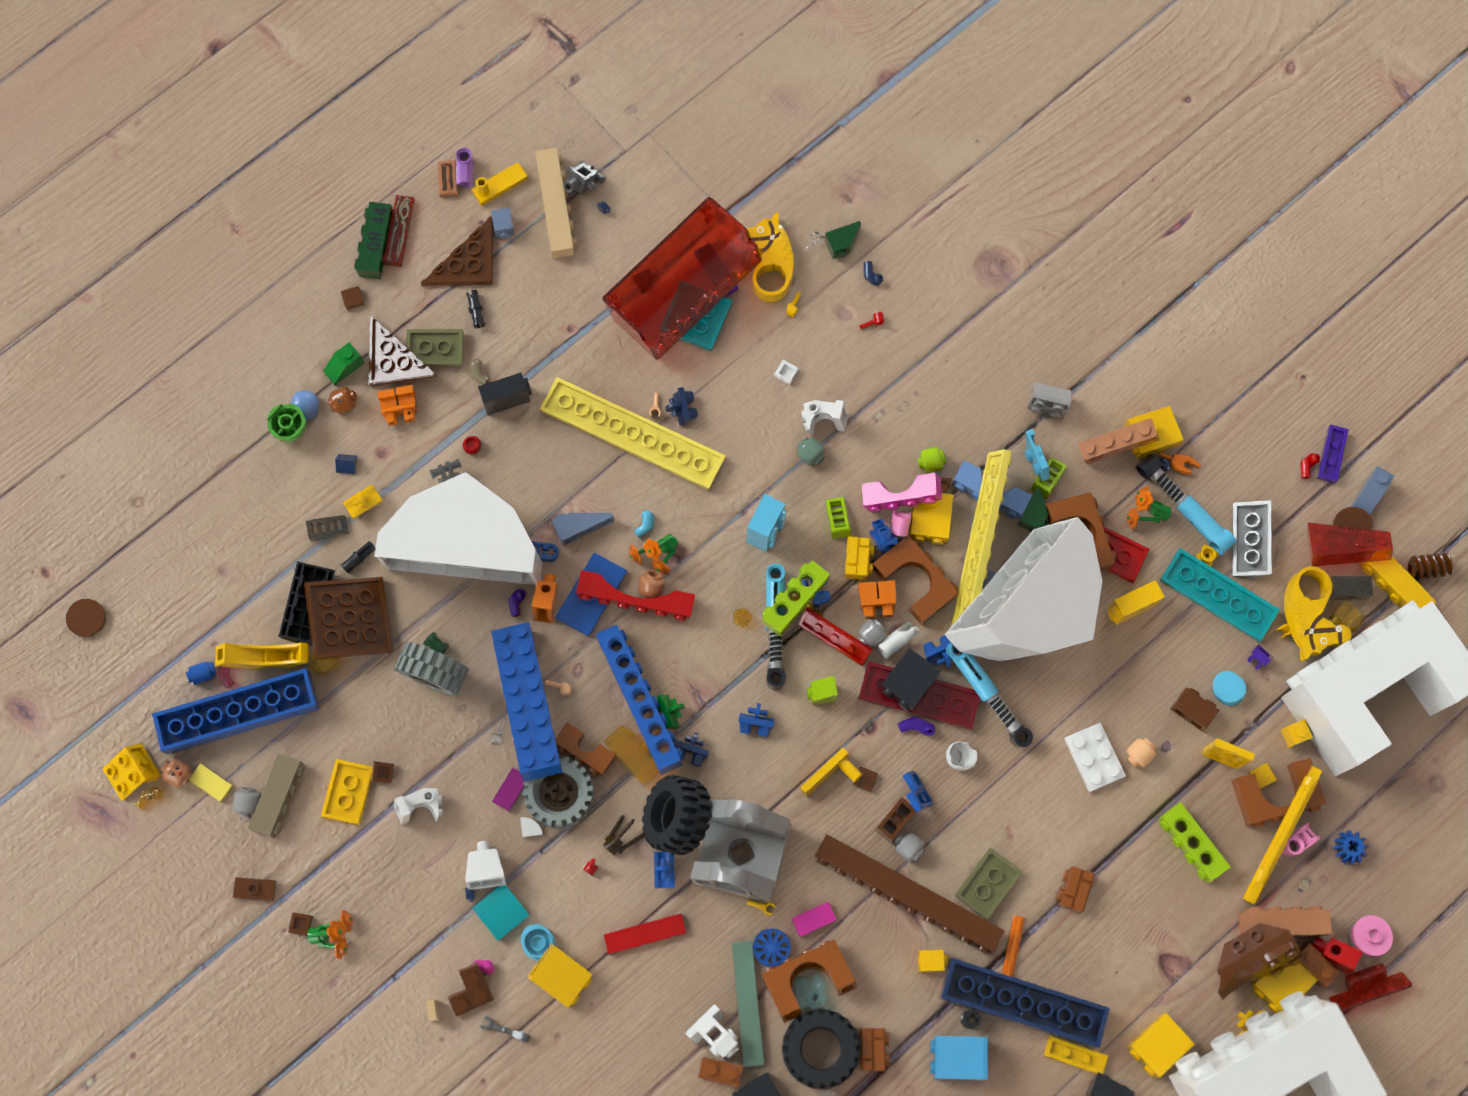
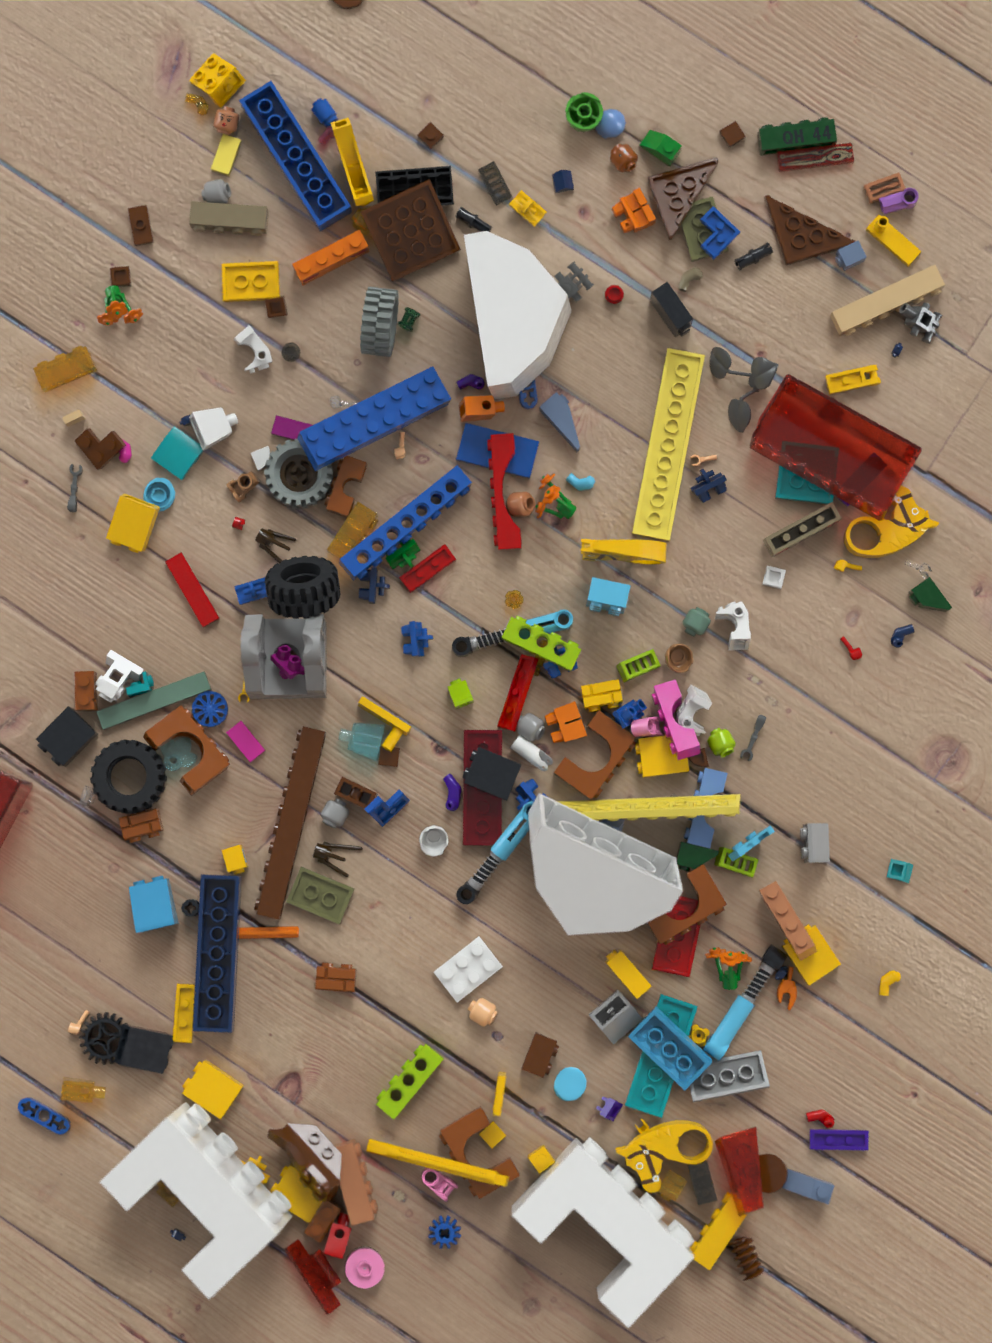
camera: 80 degrees right, 10 degrees up
(259, 576) = (430, 135): none -> reddish brown plate
(350, 704) = (331, 257): none -> orange brick
(378, 1006) = (65, 368): none -> clear yellow brick
(432, 770) = (291, 352): none -> clear smoke plate
(445, 329) = (723, 232): none -> blue tile
(554, 858) = (239, 487): none -> medium nougat plate
(595, 323) = (760, 378): none -> dark grey plant
(619, 253) = (852, 379): none -> yellow plate
(688, 692) = (427, 568): none -> red tile
(726, 495) = (625, 550): none -> yellow animal
(731, 1015) = (138, 688): none -> teal bracket
(749, 333) = (802, 529): none -> dark tan brick
(752, 849) = (288, 664): none -> magenta hips
(841, 477) = (679, 658): none -> medium nougat hair
(843, 798) = (364, 739): none -> clear light blue torso
(890, 476) = (693, 701): none -> white tile
(922, 421) = (758, 725): none -> dark grey piece
(946, 868) = (323, 852): none -> dark brown plant
(1091, 334) = (900, 870): none -> teal slope
(1172, 627) = (615, 1016): none -> light grey slope
(1192, 372) = (887, 980): none -> yellow arm
(1216, 582) = (670, 1048): none -> dark azure slope

